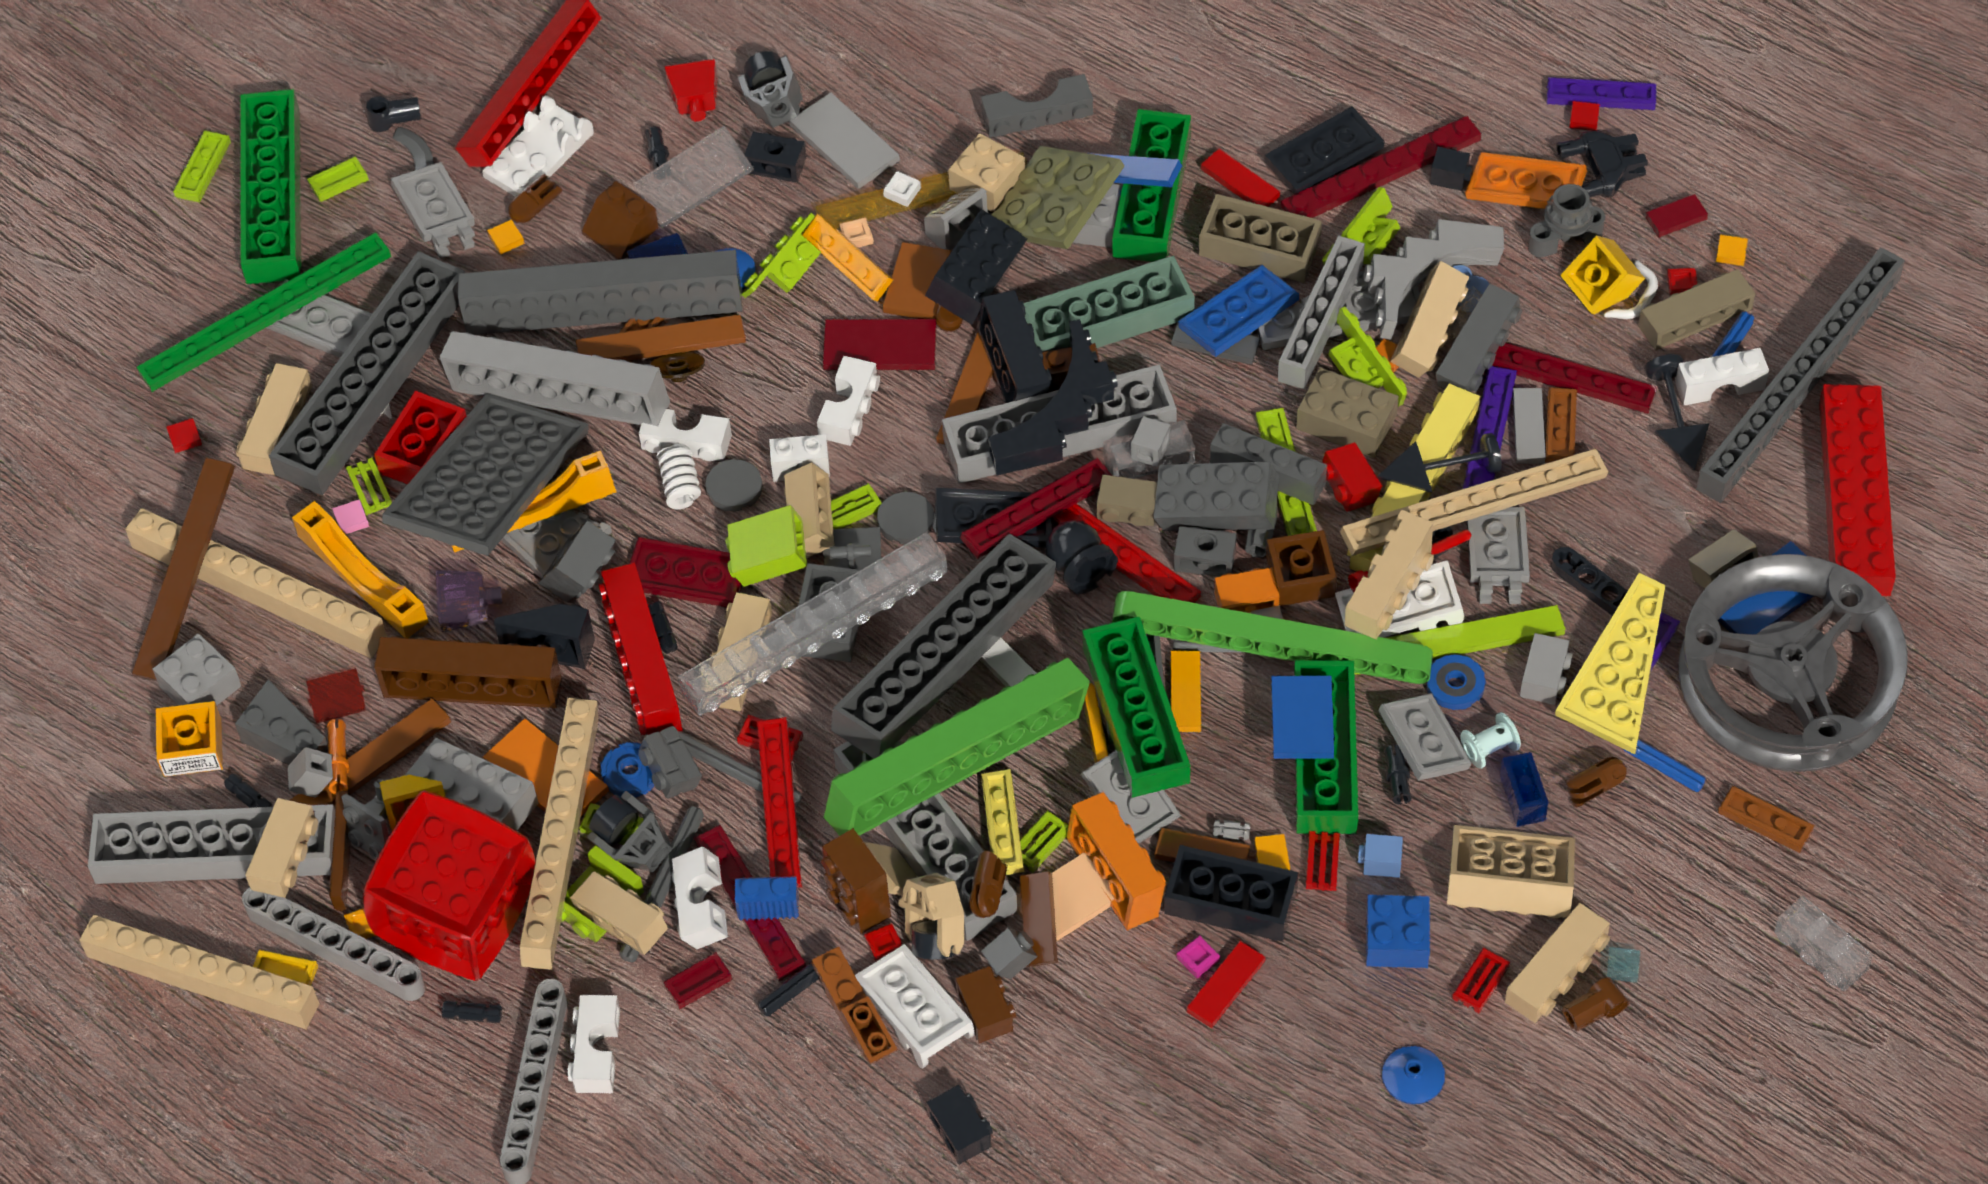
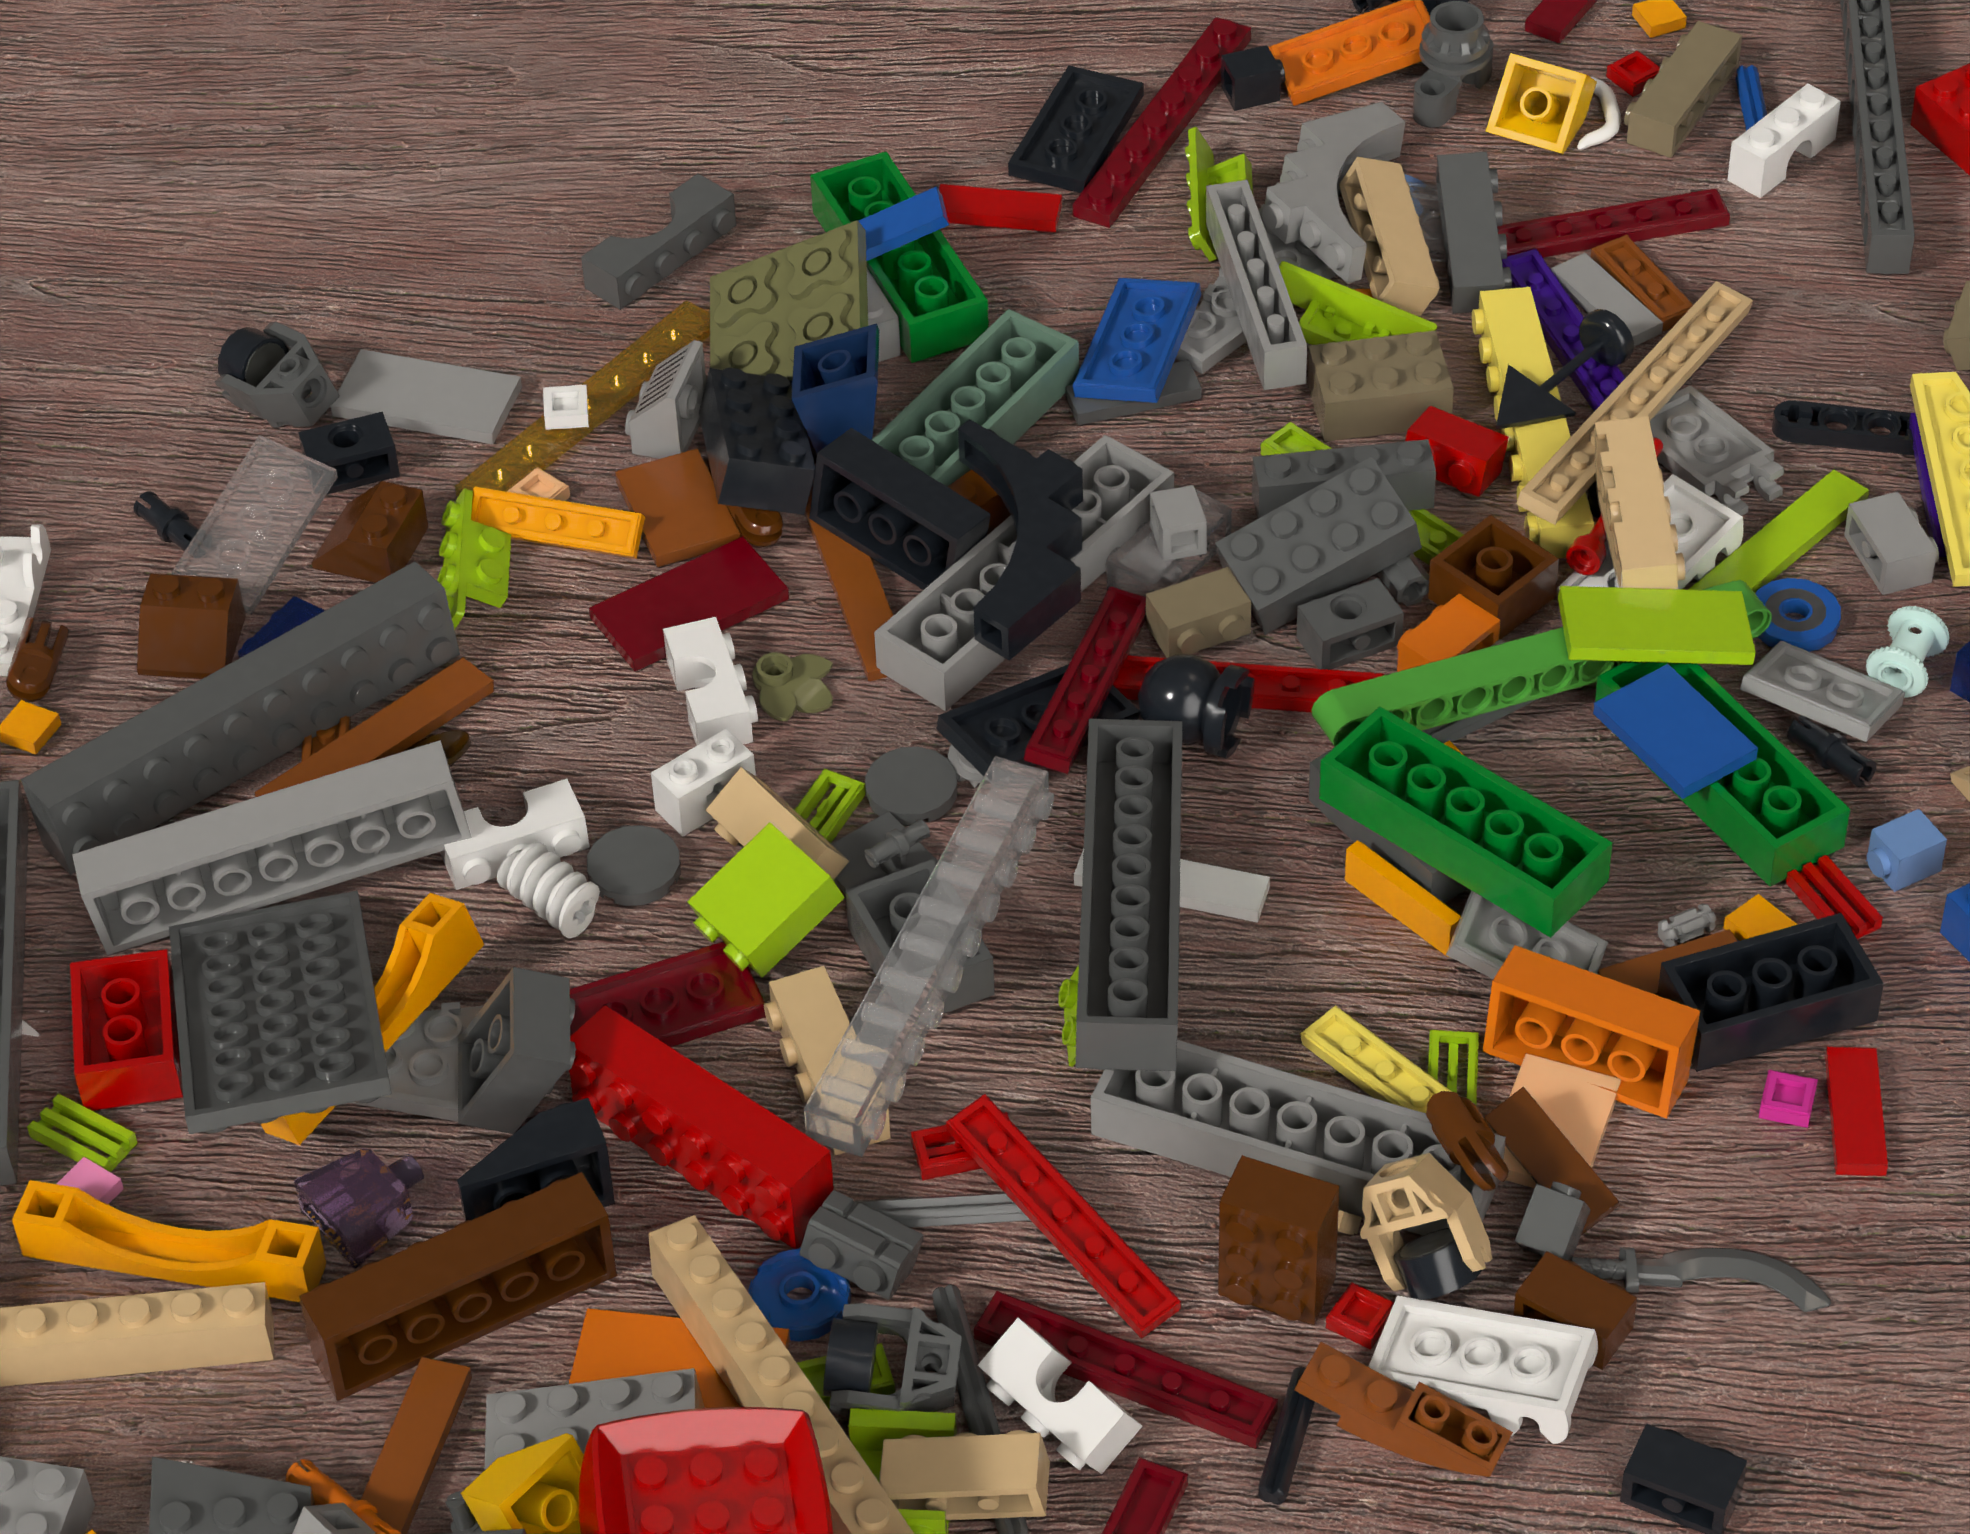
camera: 35 degrees left, 10 degrees down
(336, 695) = (262, 1434): clear red piece -> none
(693, 87) = (157, 427): red torso -> none
(752, 216) = (375, 533): none -> reddish brown slope
(767, 897) = (1161, 1338): blue brick -> none
(893, 427) = (792, 684): none -> olive plate
(956, 748) = (1269, 1000): bright green brick -> none
(988, 167) = (661, 324): tan brick -> none
(1034, 261) = (837, 384): none -> dark blue slope
(1076, 1019) = (1708, 1263): none -> dark grey sword
(1259, 236) = (1089, 246): dark tan brick -> none
(1345, 649) = (1656, 625): none -> lime tile
(1683, 440) = (1800, 228): black piece -> none

